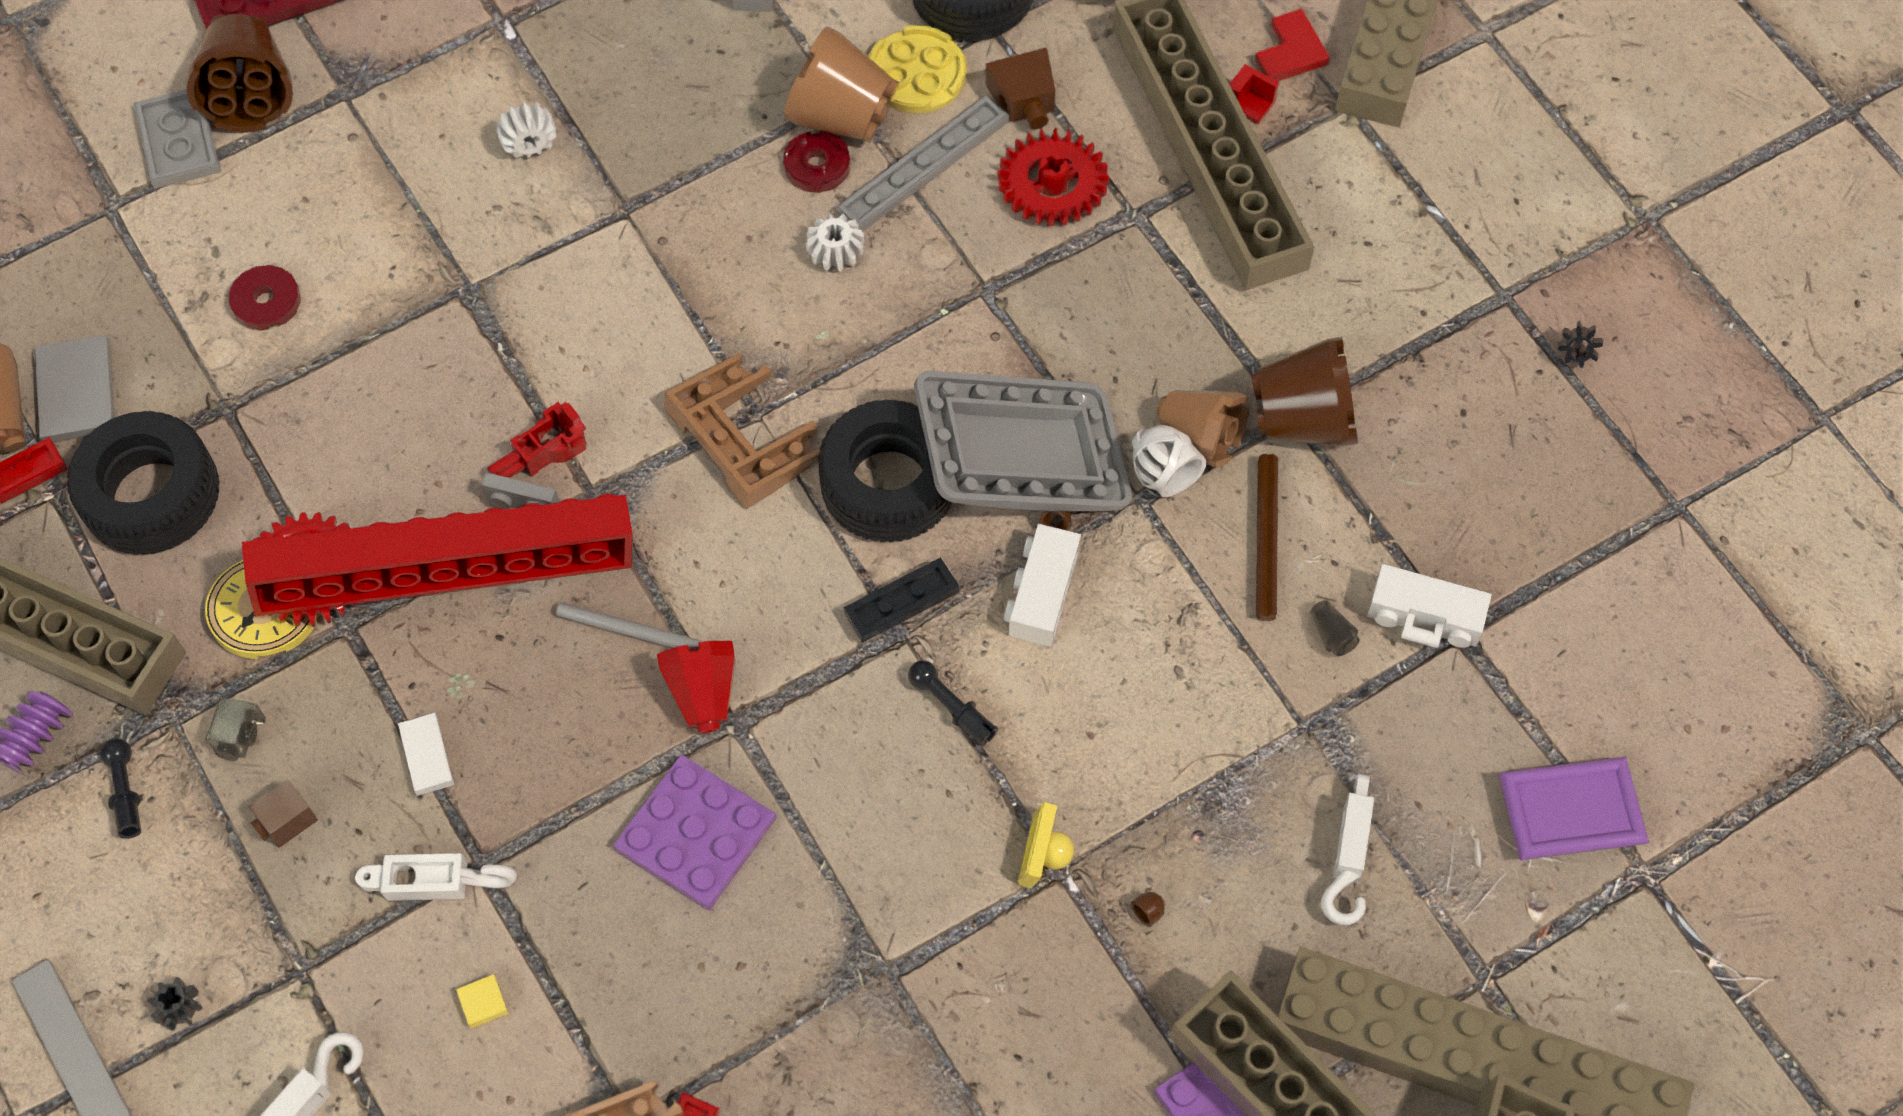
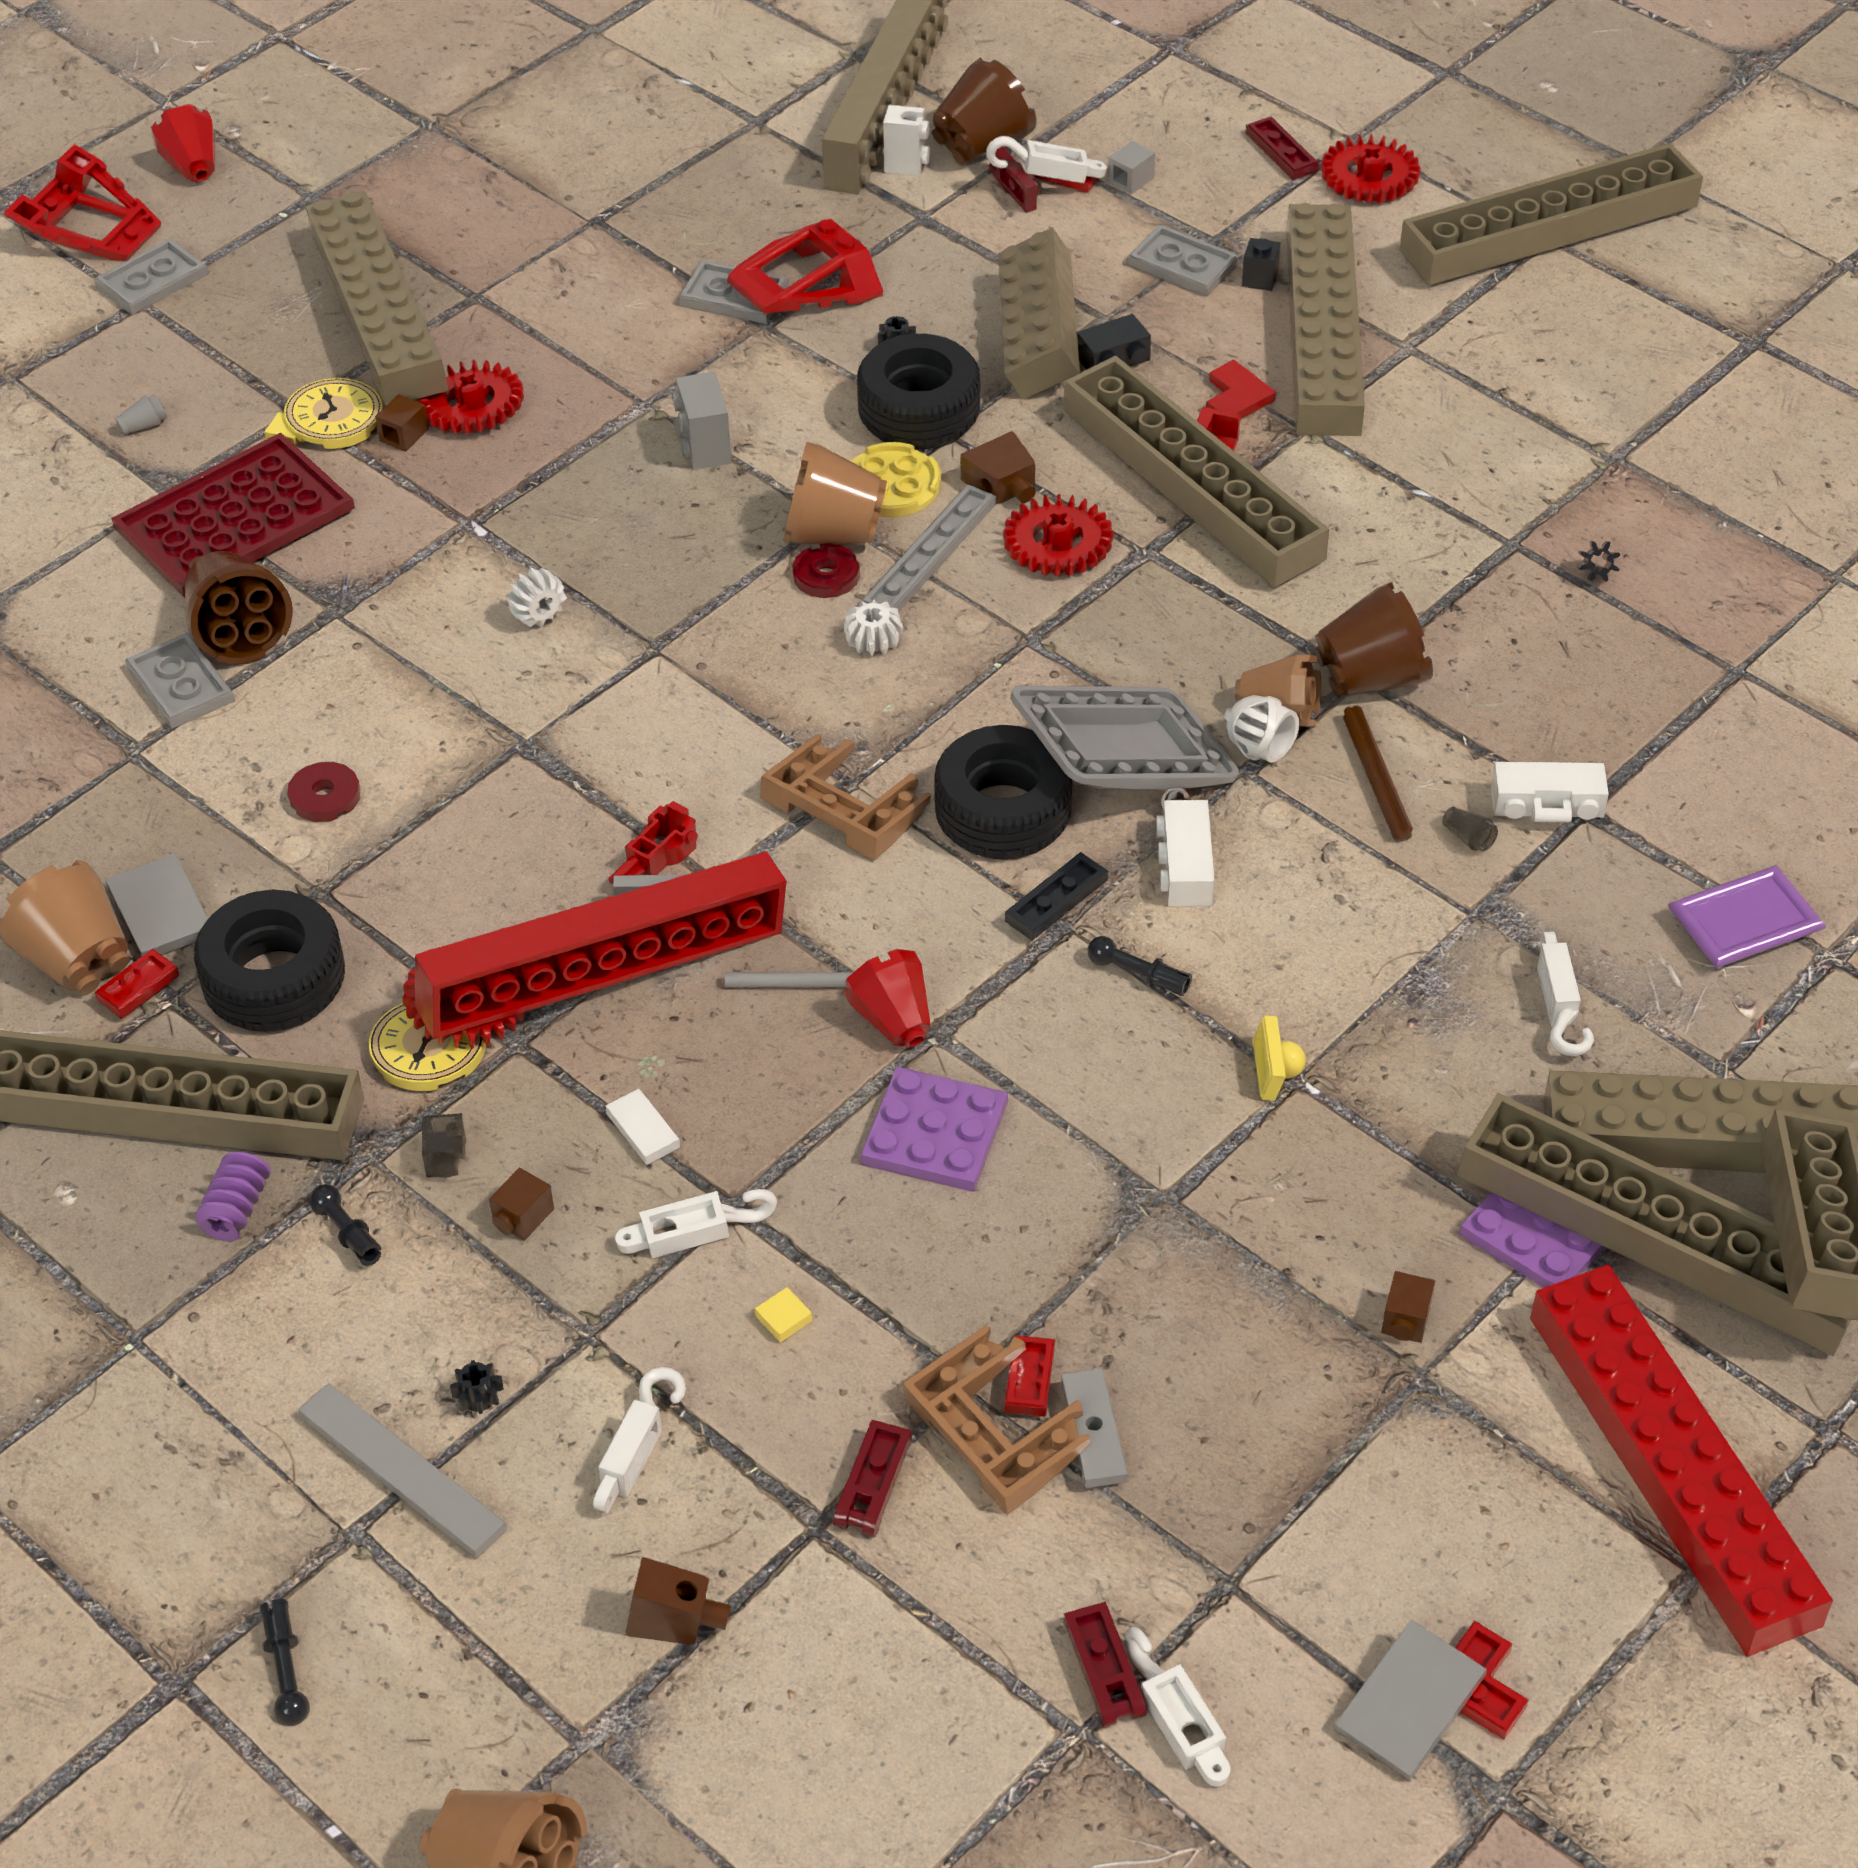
camera: 15 degrees left, 15 degrees down
(1148, 908) = (1392, 1085): reddish brown hinge -> none

